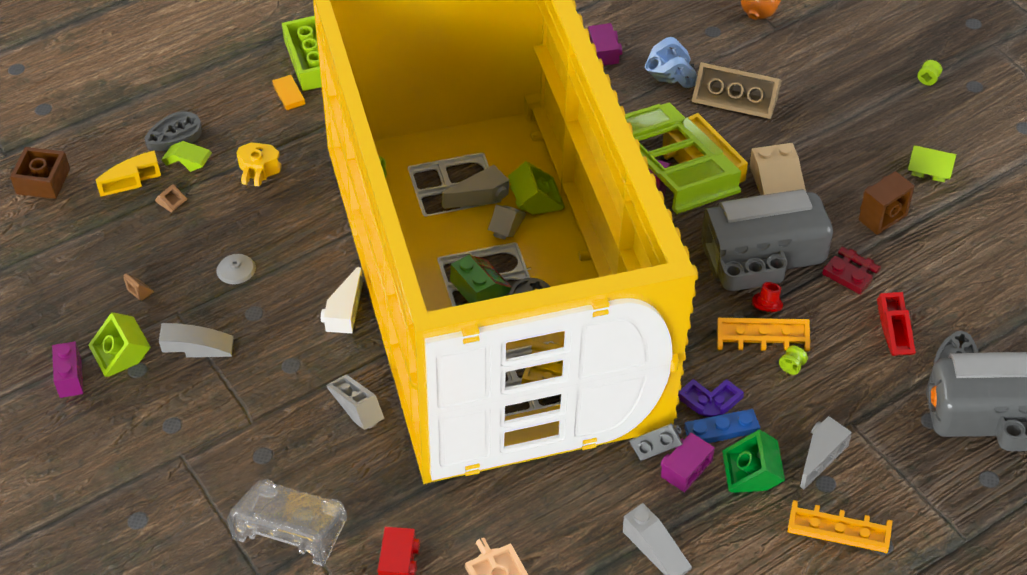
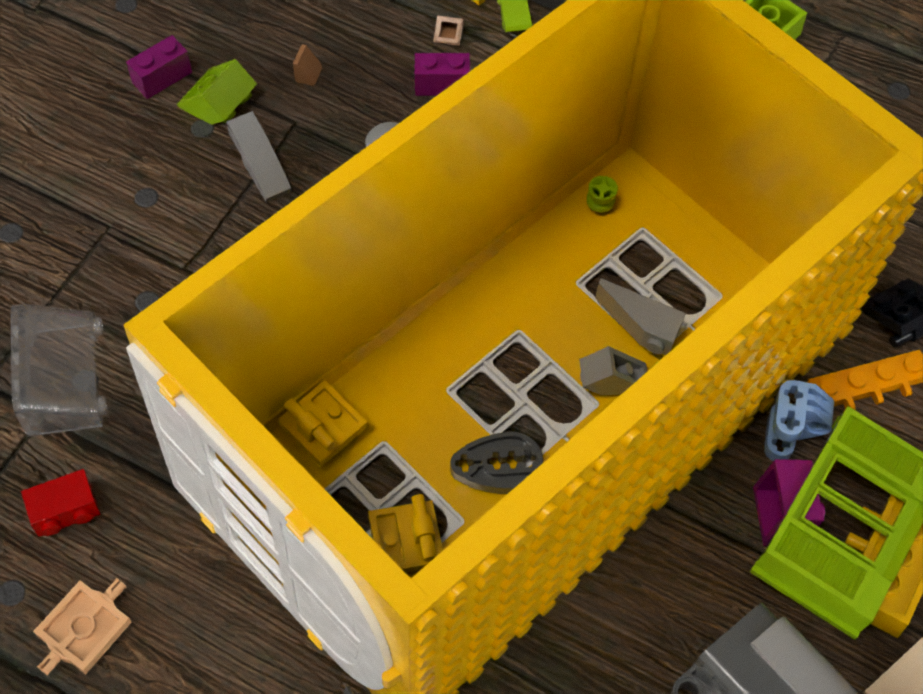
camera: 60 degrees right, 10 degrees up
(209, 214) = (438, 71): none -> magenta brick
(477, 279) = (498, 390): bright green slope -> none

